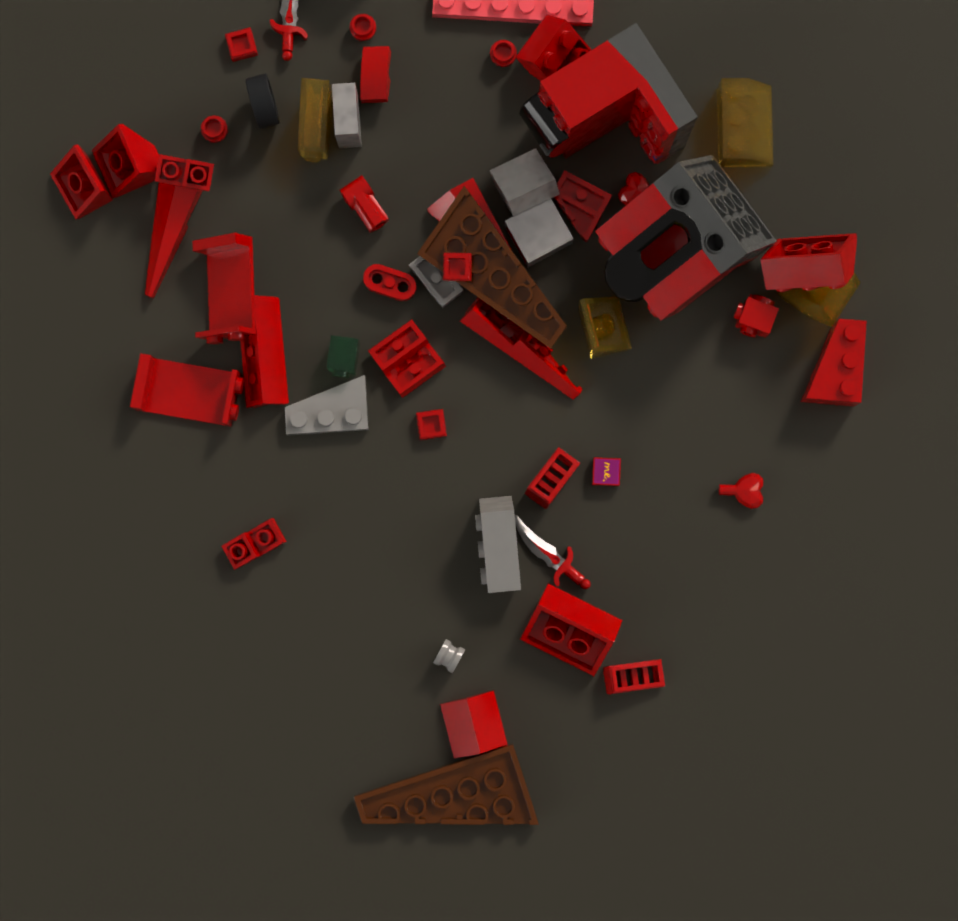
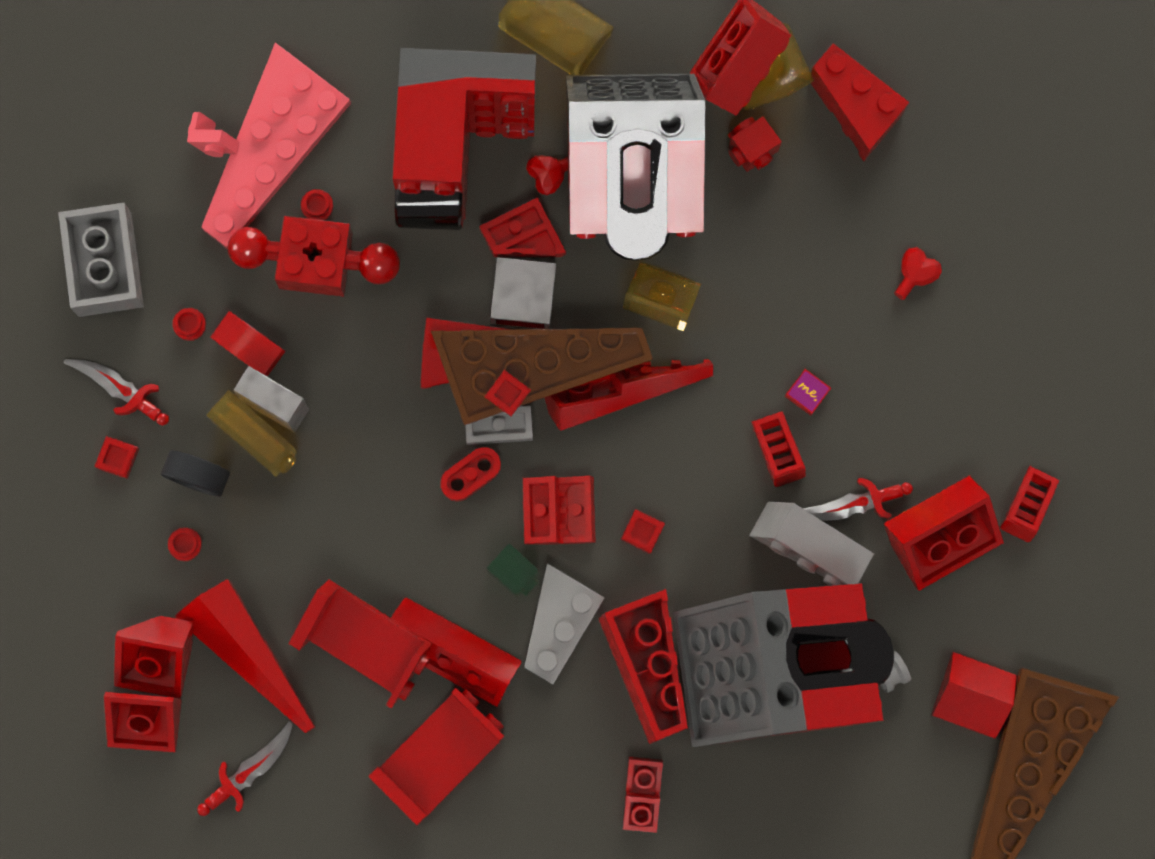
camera: 65 degrees left, 5 degrees down
(92, 275) = (245, 775): none -> piece
(184, 172) = (214, 602): red slope -> none
(343, 485) = (647, 662): none -> red wedge
(361, 199) = (362, 444): red piece -> none
(398, 578) = (781, 663): none -> piece
(466, 57) = (327, 273): none -> red brick
(524, 182) = (465, 272): flat silver piece -> none
(551, 47) = (354, 155): red slope -> none

